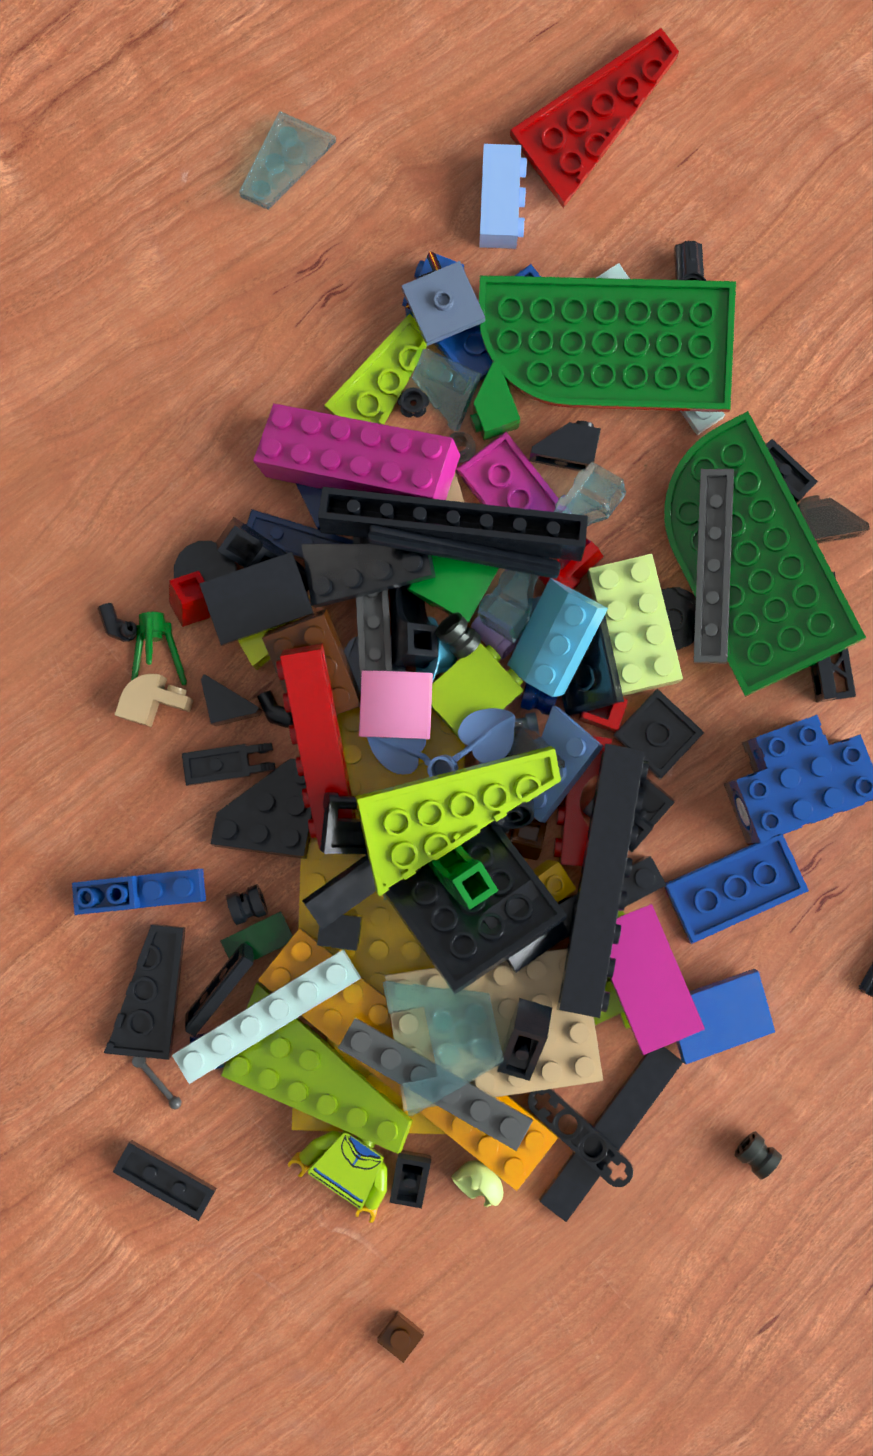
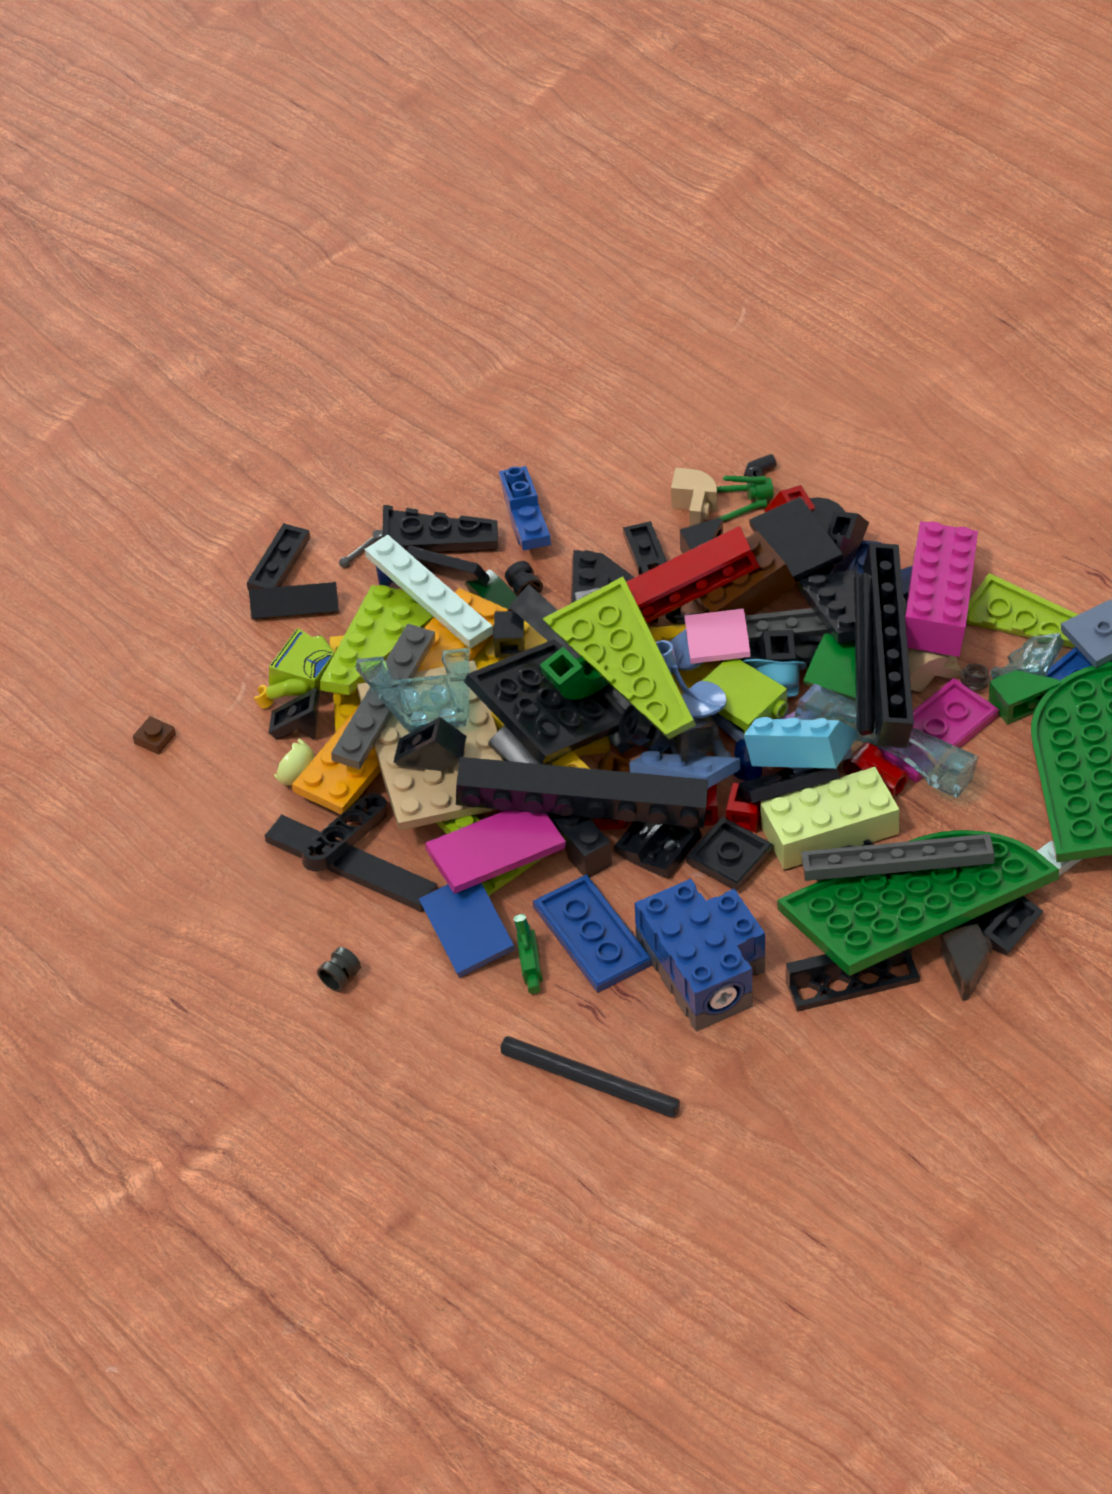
camera: 85 degrees right, 35 degrees down
(231, 1167) = (293, 600): none -> black tile
(409, 395) = (1009, 639): black plate -> none
(459, 636) = (789, 671): pearl dark grey wheel -> none
(568, 447) = (996, 754): black slope -> none
(767, 955) = (528, 954): none -> green piece

